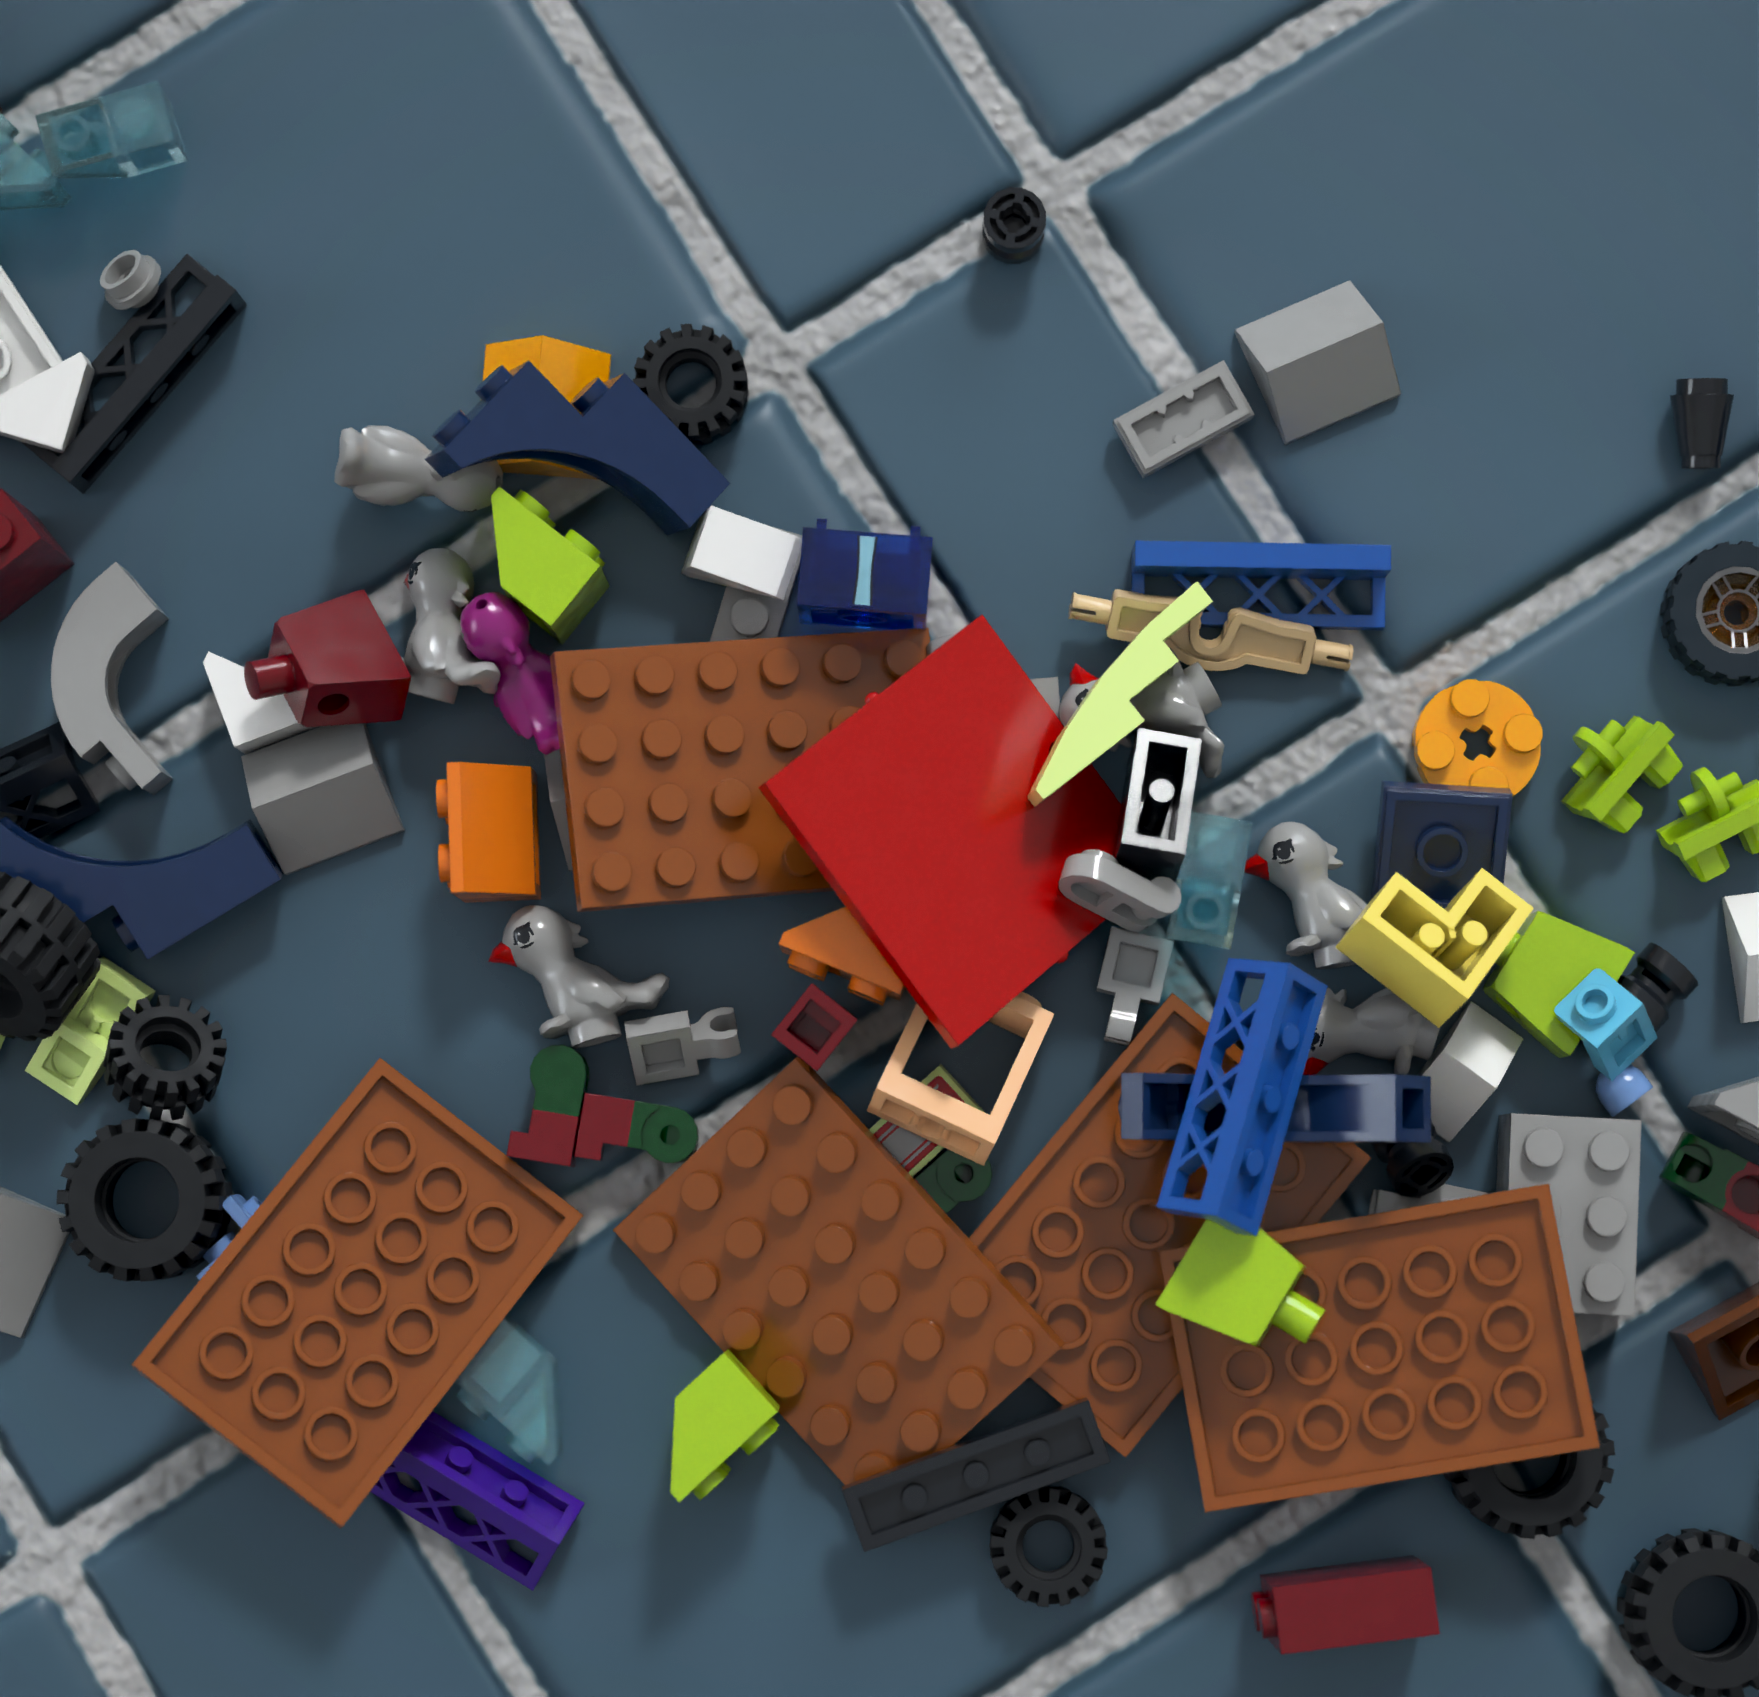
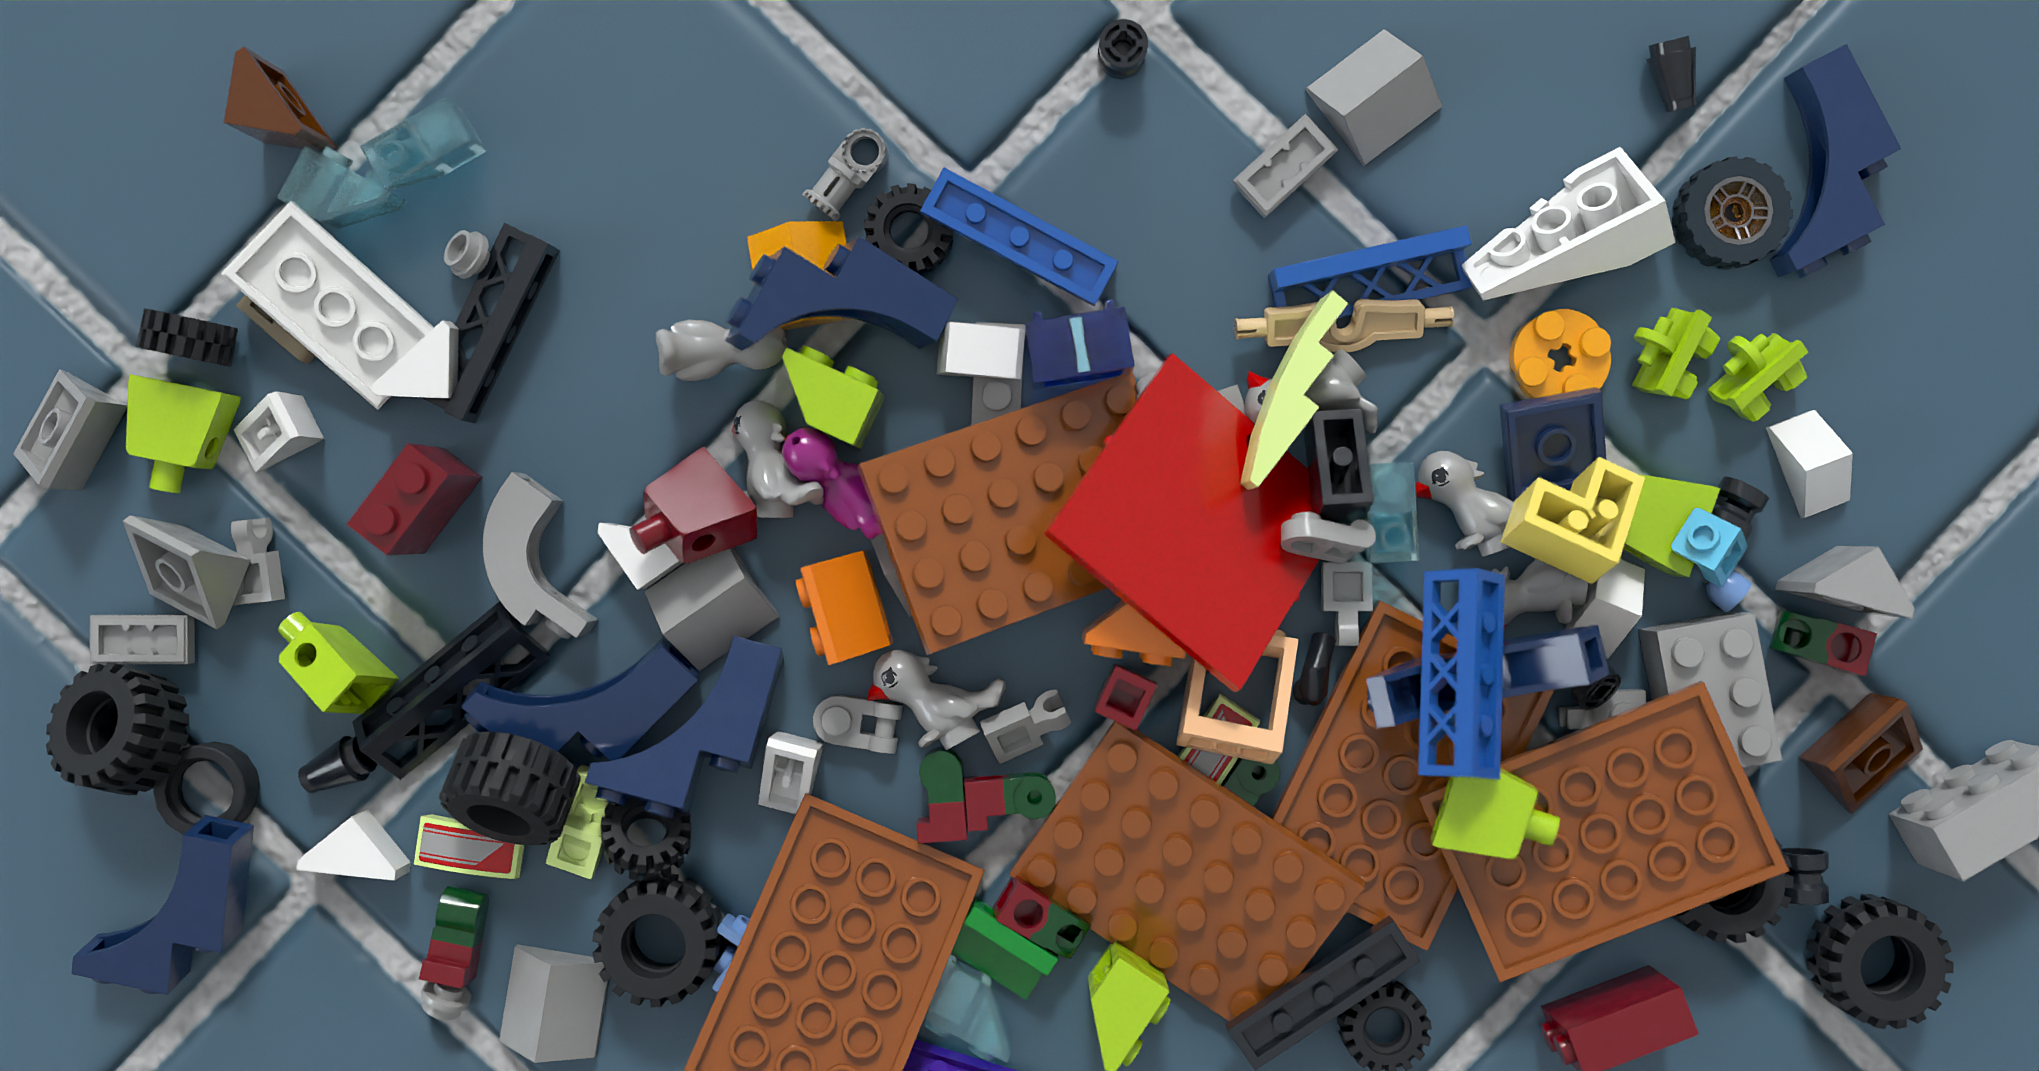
camera: 15 degrees left, 5 degrees up
(293, 950) = (721, 729): none -> dark blue arch
(364, 1028) = (788, 771): none -> white slope
(449, 978) = (841, 719): none -> light grey plate
(579, 1325) = (1001, 951): none -> green panel
(628, 295) = (845, 174): none -> light grey connector
(640, 1295) = (1040, 918): none -> leg
(826, 425) = (1019, 237): none -> blue fence
(1066, 1069) = (1314, 679): none -> black arm
(1553, 587) = (1593, 225): none -> white wedge
(1634, 1482) = (1807, 882): none -> black wheel

